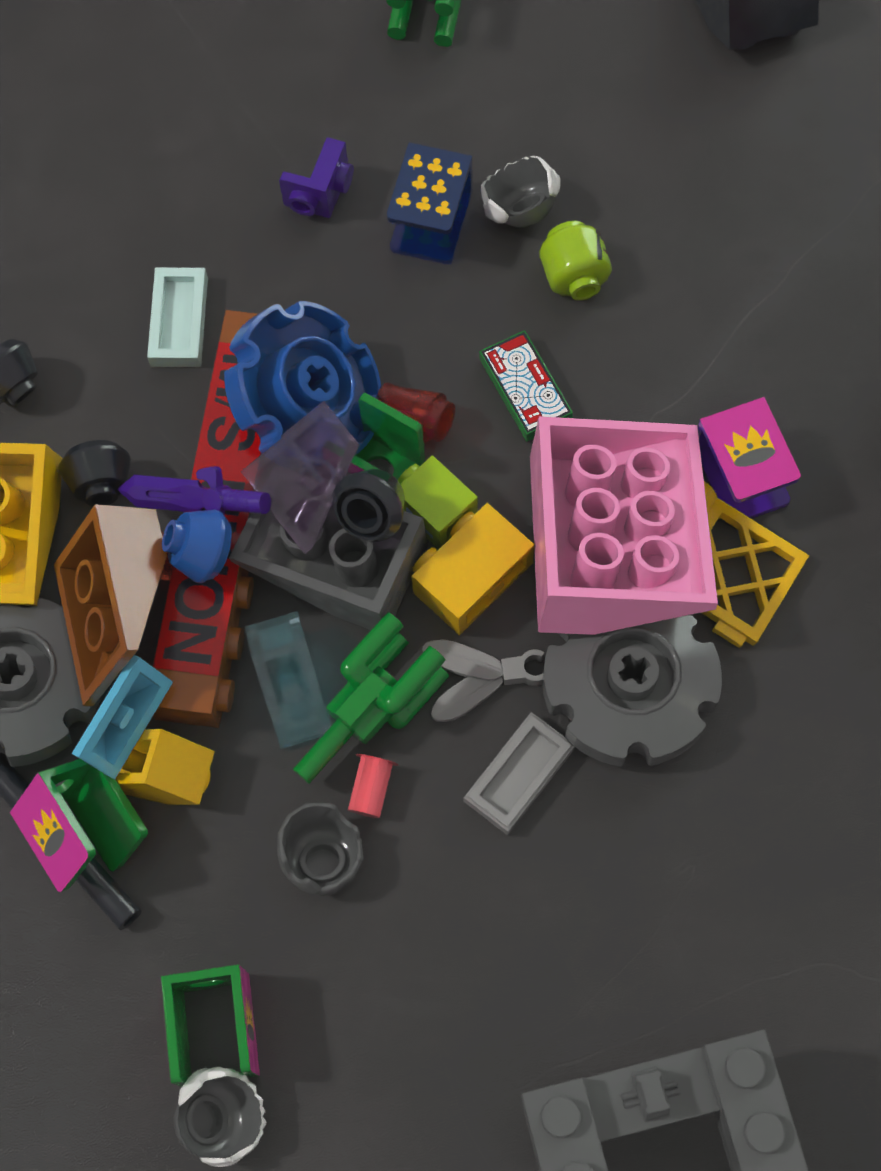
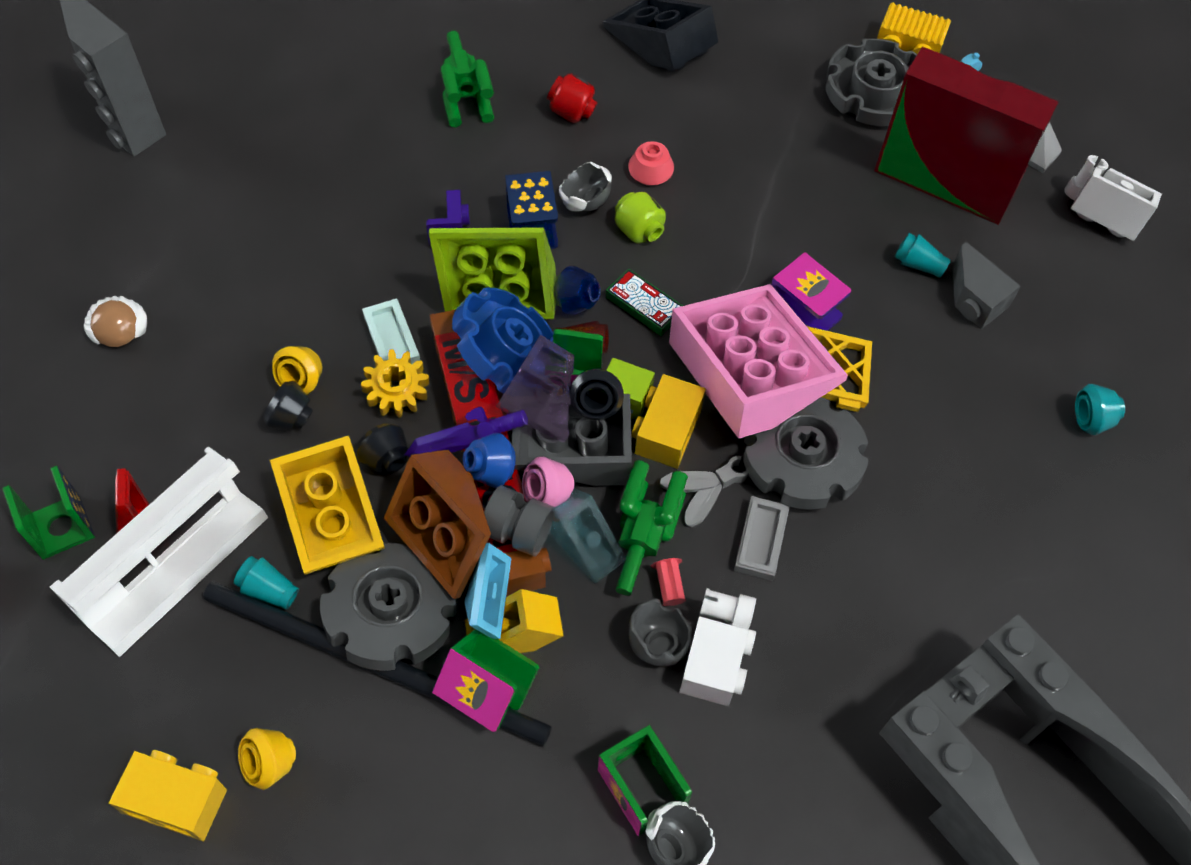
camera: 30 degrees left, 10 degrees down
(40, 322) = (297, 365): none -> yellow cone
(139, 373) = (380, 383): none -> yellow gear
(189, 631) = (519, 521): none -> dark grey wheel
(260, 602) = (547, 481): none -> bright pink cone
(352, 278) = (495, 258): none -> lime slope
(386, 897) = (718, 648): none -> white hinge
(434, 339) = (576, 290): none -> clear blue cone
(566, 48) = (572, 98): none -> red head
(631, 185) = (651, 164): none -> coral cone

